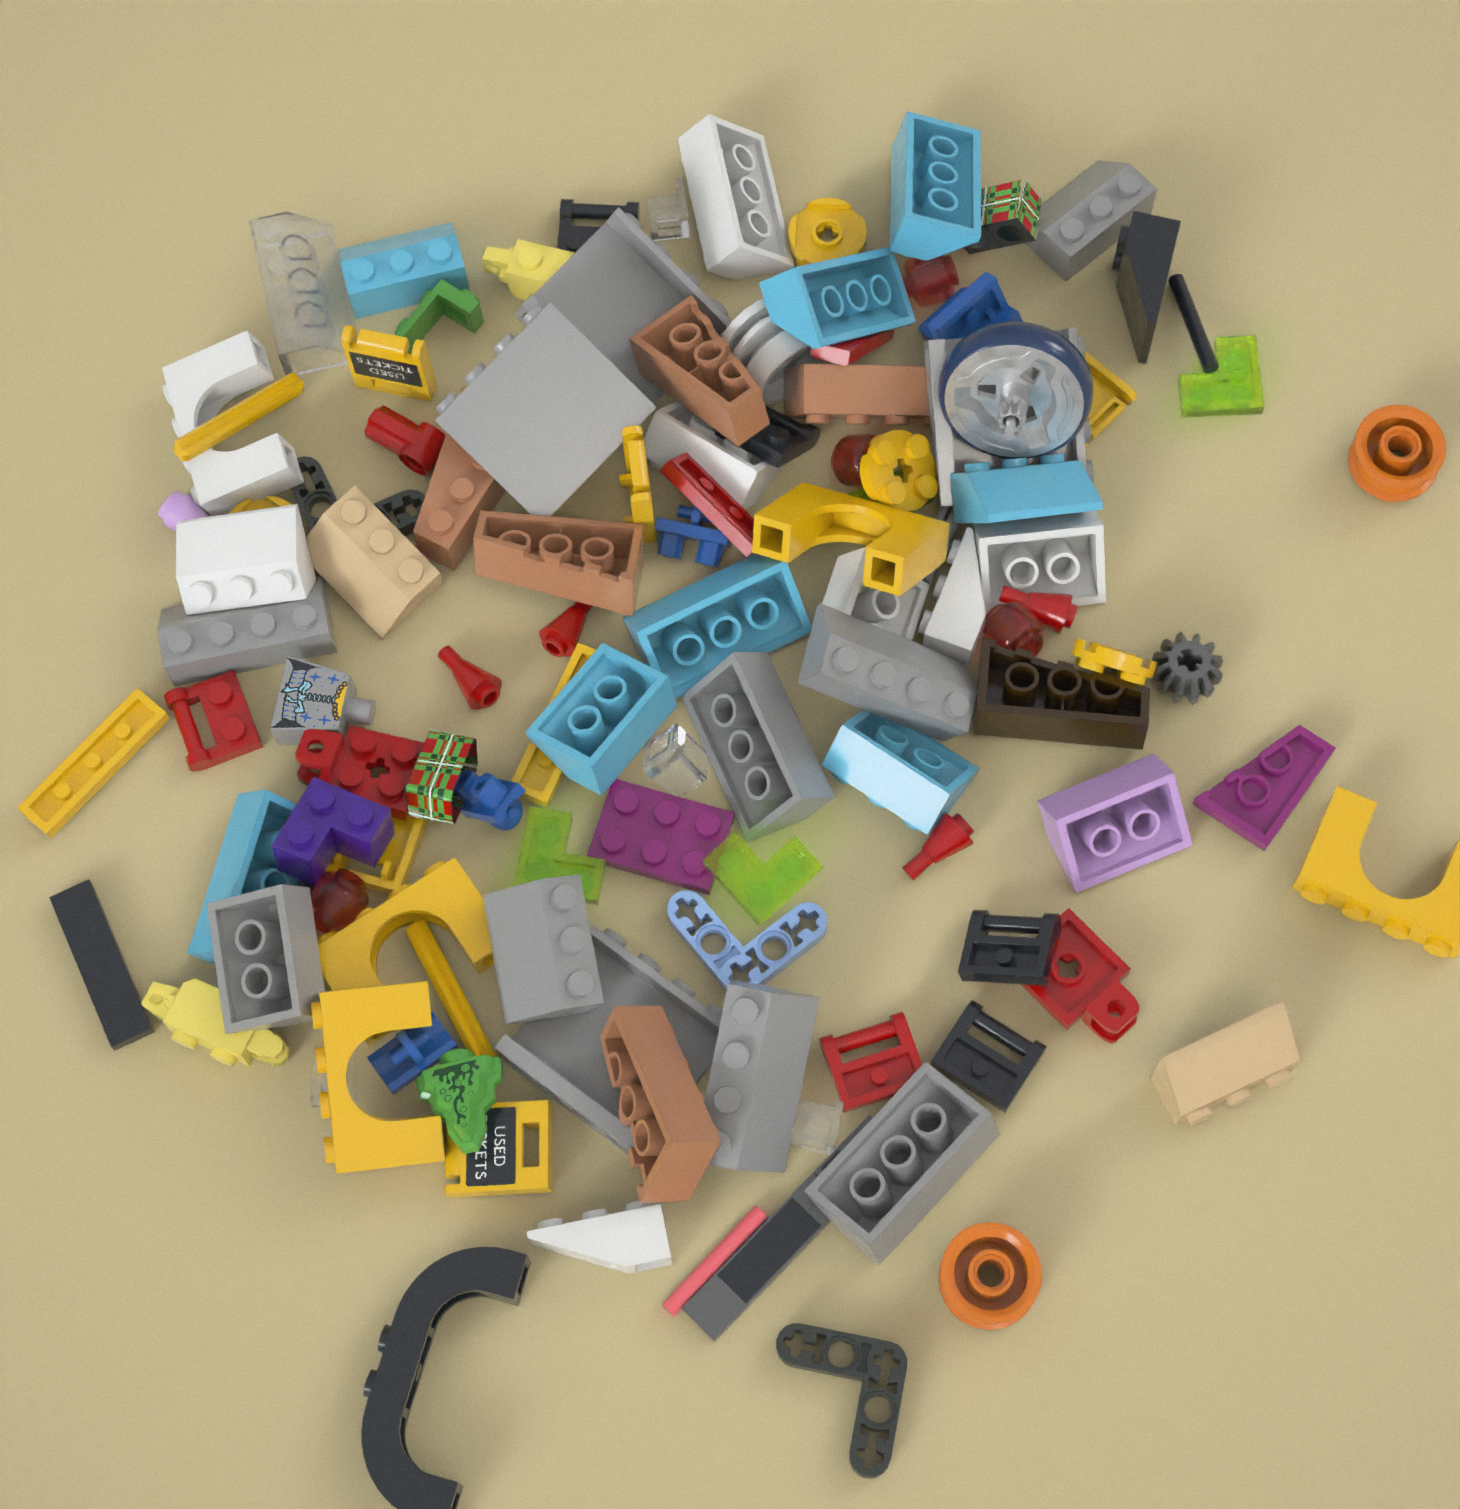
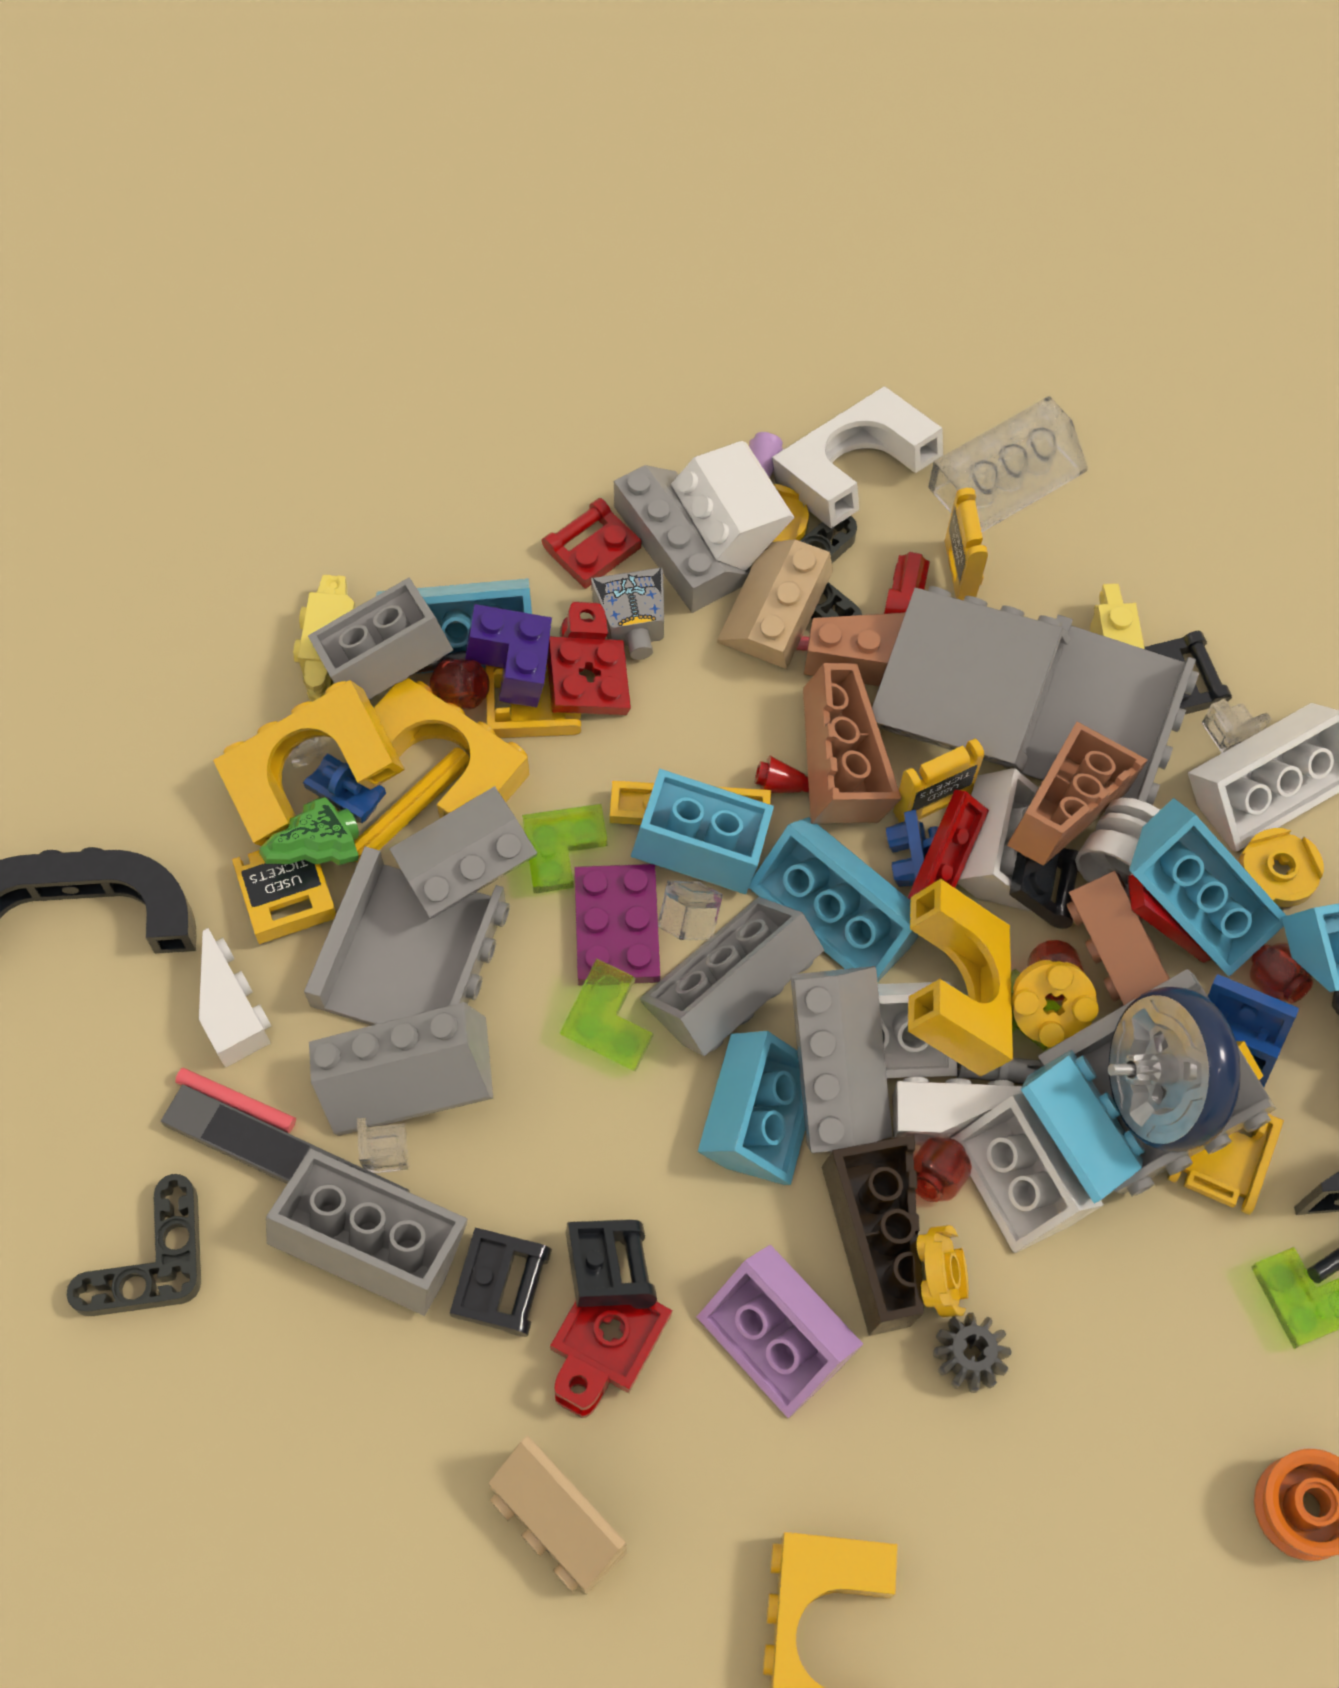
camera: 65 degrees right, 5 degrees down
(93, 763) = (521, 471): yellow plate -> none
(101, 965) = (354, 538): black tile -> none
(238, 417) = (865, 456): yellow axle -> none
(401, 269) = (1068, 533): medium azure slope -> none
(435, 776) = (598, 723): piece -> none
(445, 300) = (1034, 566): bright green bracket -> none
(476, 684) = (699, 725): red cone -> none
(490, 799) = (593, 769): blue hips -> none
(659, 1102) = (351, 991): nougat wedge -> none
(736, 955) = (526, 1024): light blue beam -> none
(876, 1075) = (447, 1182): red plate -> none
(945, 840) = (704, 1174): red cone -> none
(983, 1305) = (295, 1372): orange wheel -> none
(1050, 608) = (978, 1195): red cone -> none
(1268, 788) = (876, 1478): magenta wing -> none

